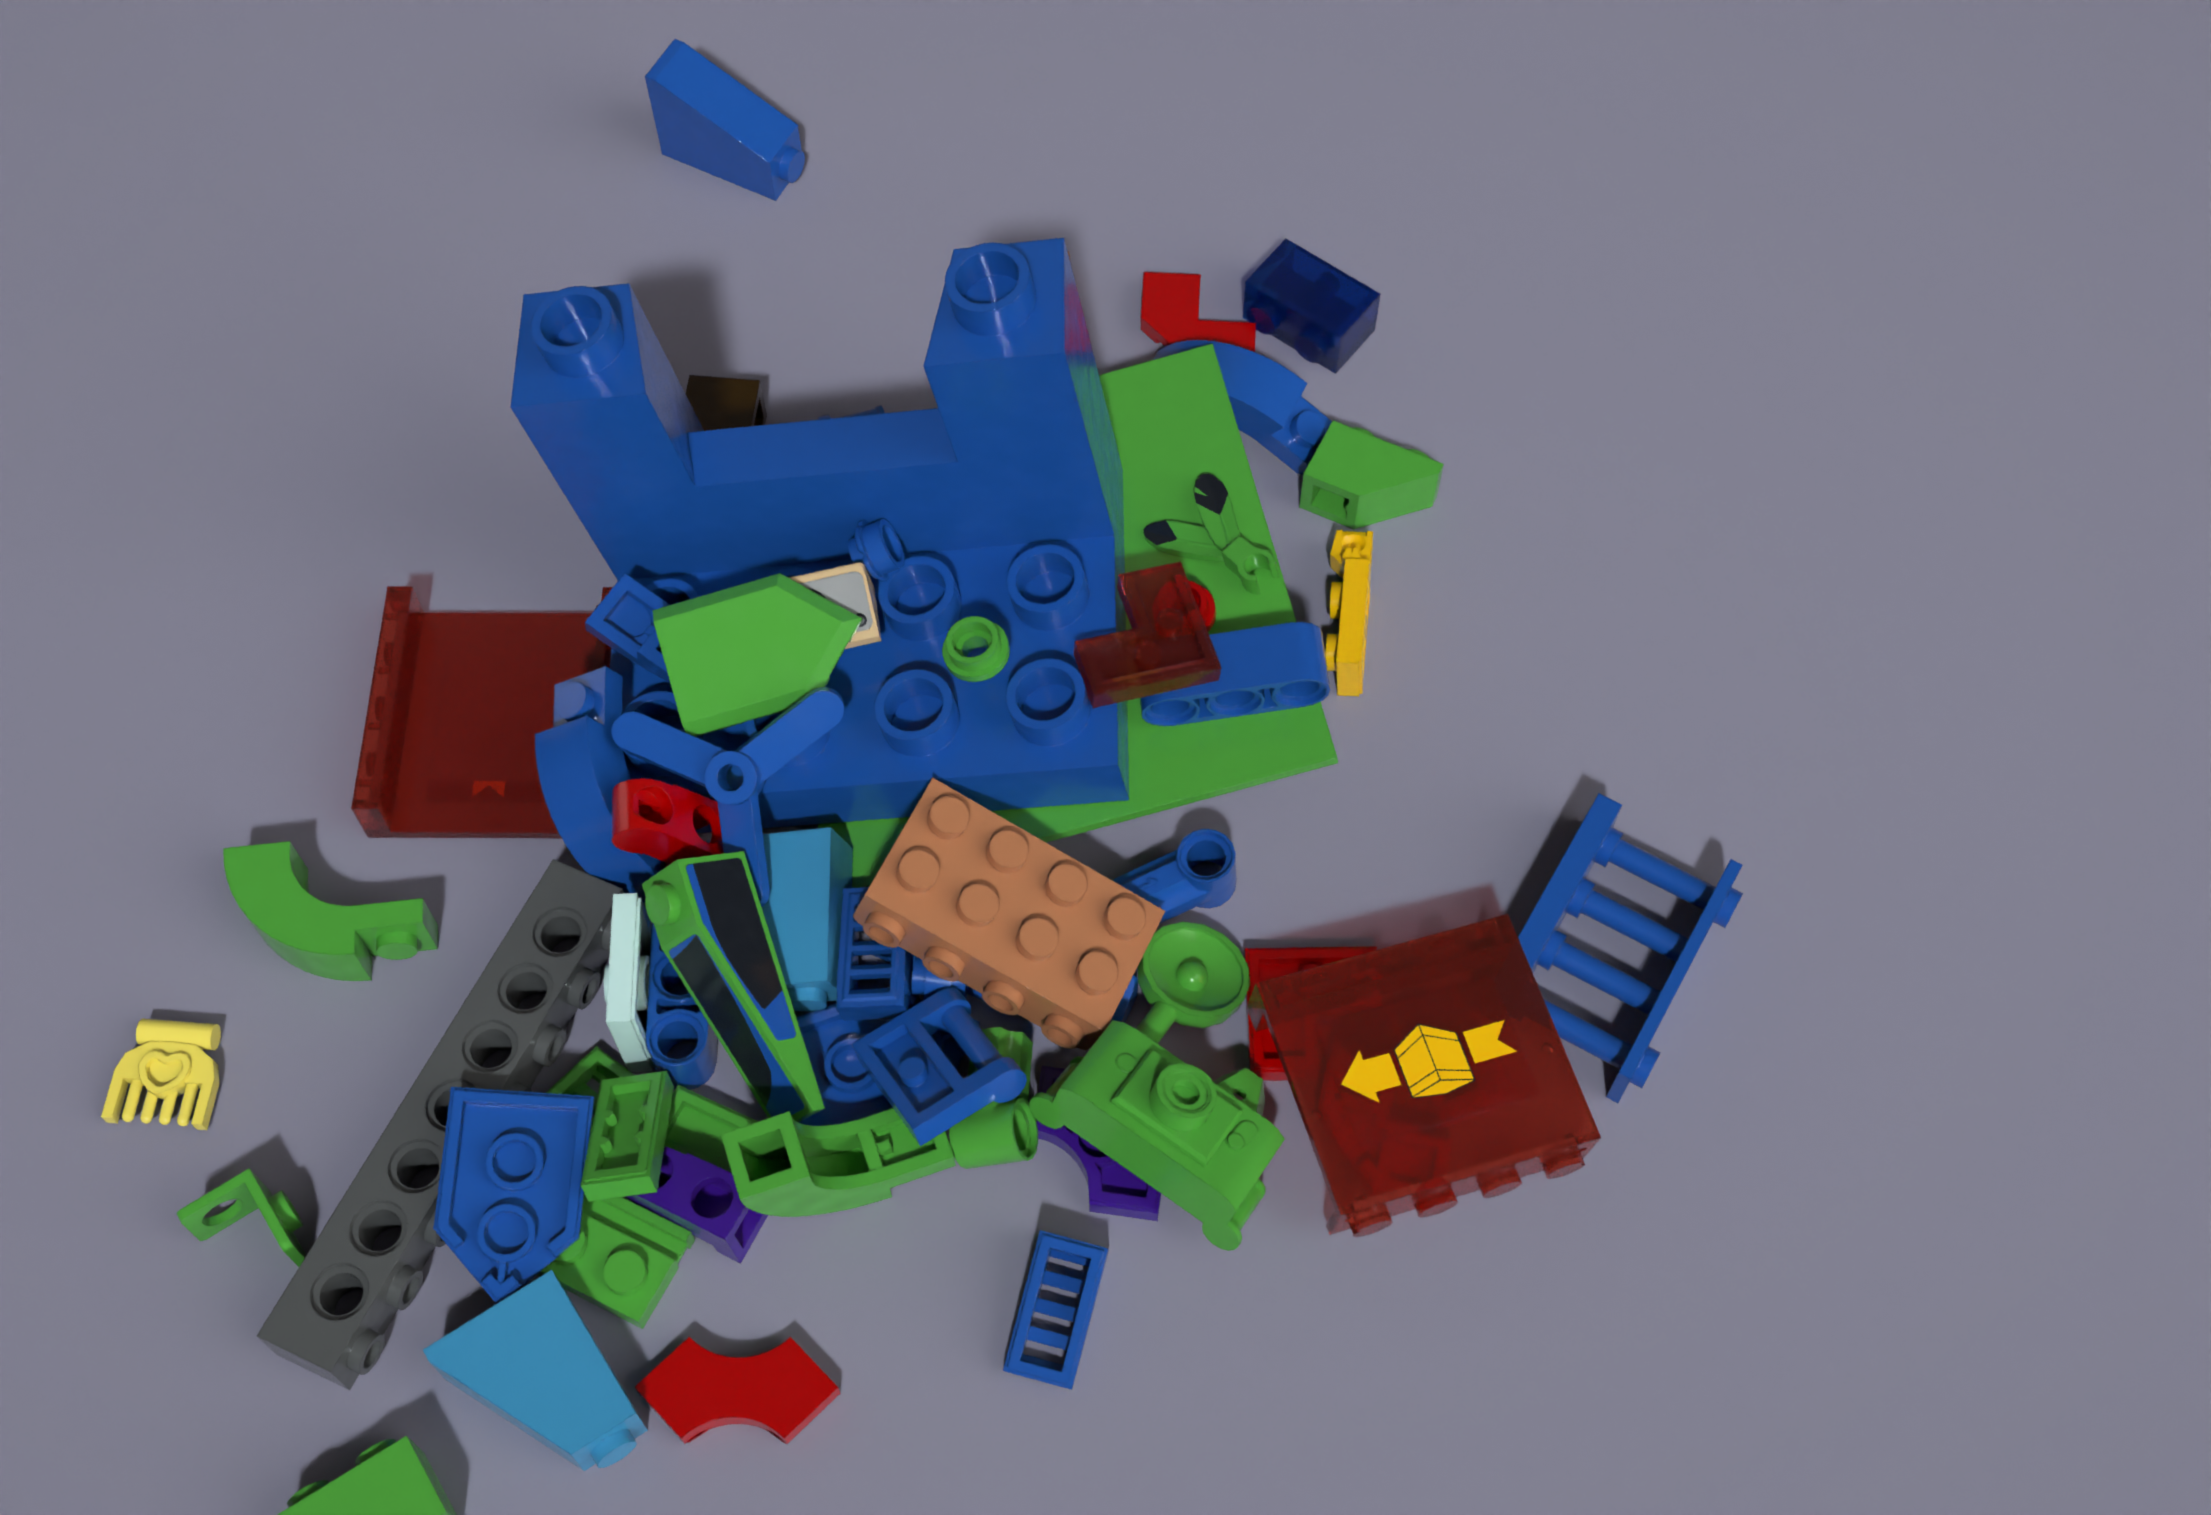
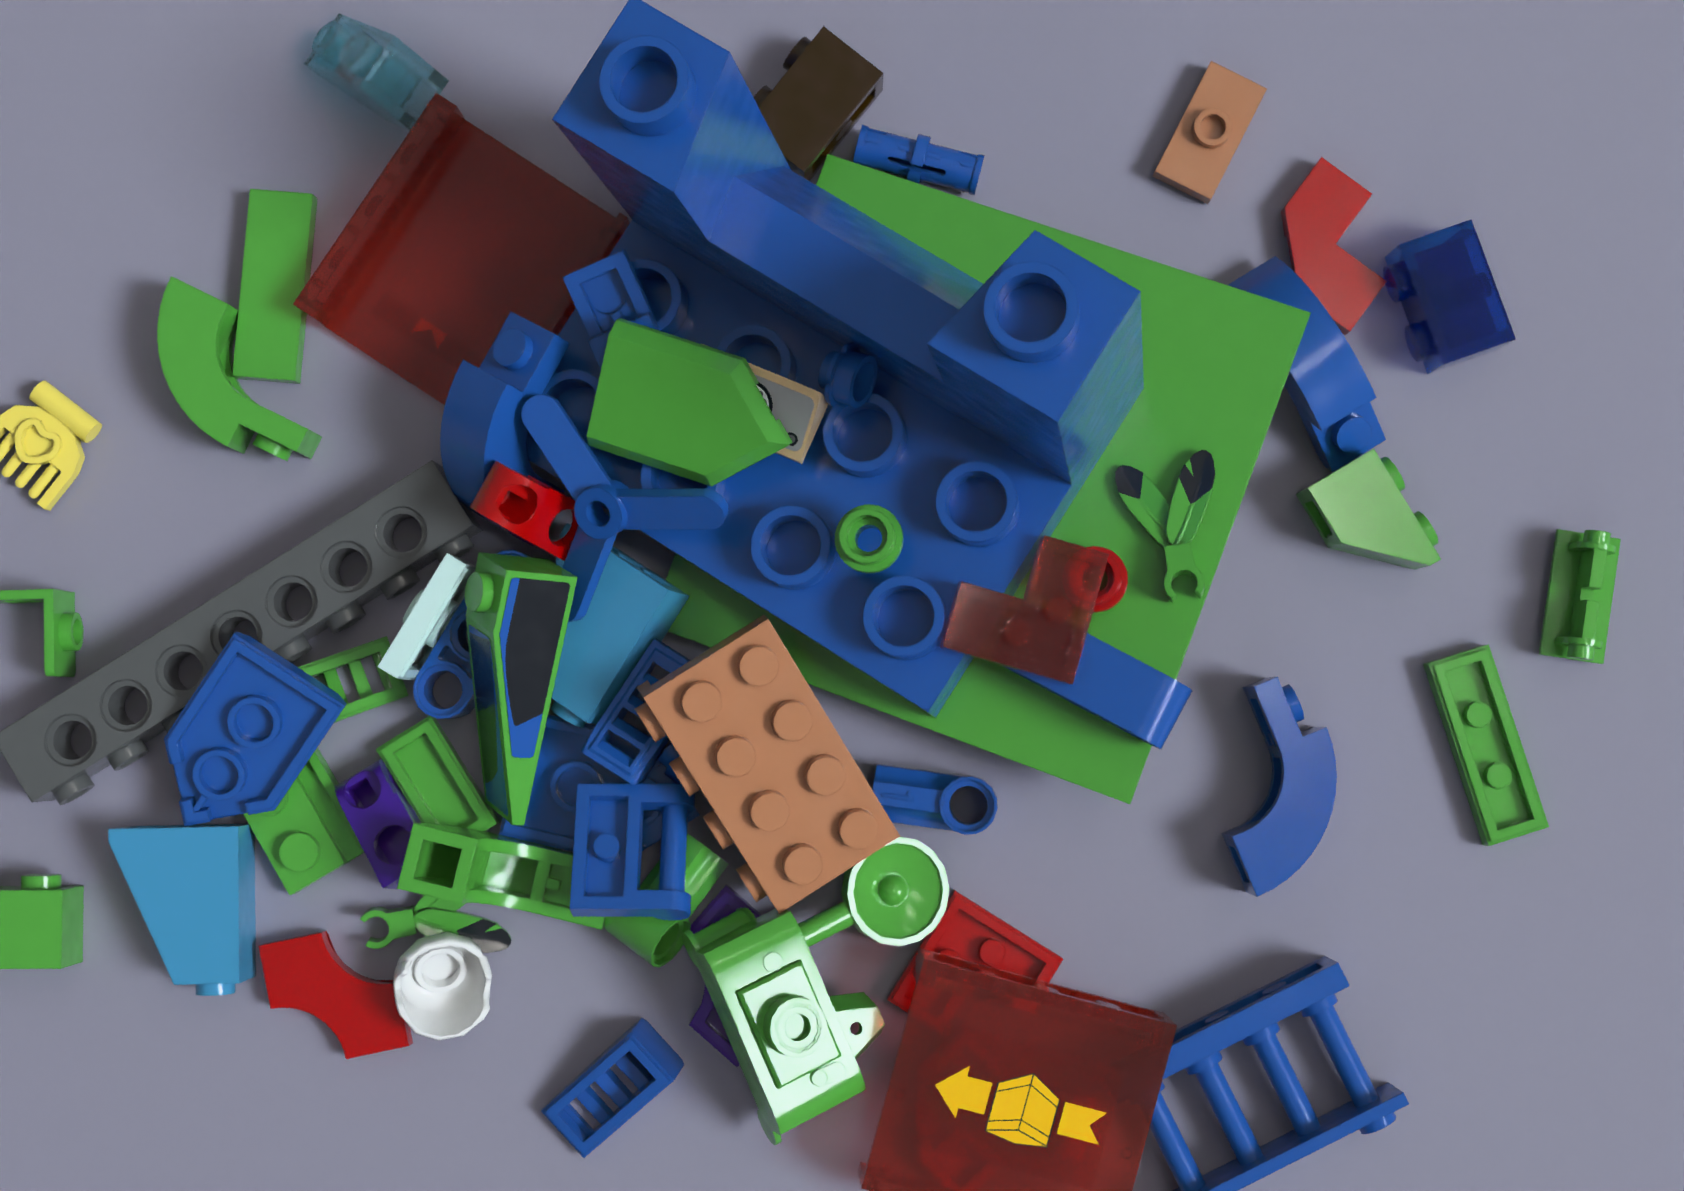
camera: 35 degrees right, 25 degrees up
(322, 609) = (375, 70): none -> clear light blue slope
(323, 824) = (273, 275): none -> bright green tile
(627, 1136) = (356, 752): bright green plate -> none
(797, 1260) = (434, 917): none -> bright green piece
(835, 1301) = (442, 986): none -> white hair
(1350, 603) = (1265, 631): yellow hinge -> none
(1463, 693) = (1299, 797): none -> blue arch
(1569, 445) = (1580, 595): none -> bright green hinge
(1586, 591) = (1486, 745): none -> bright green tile

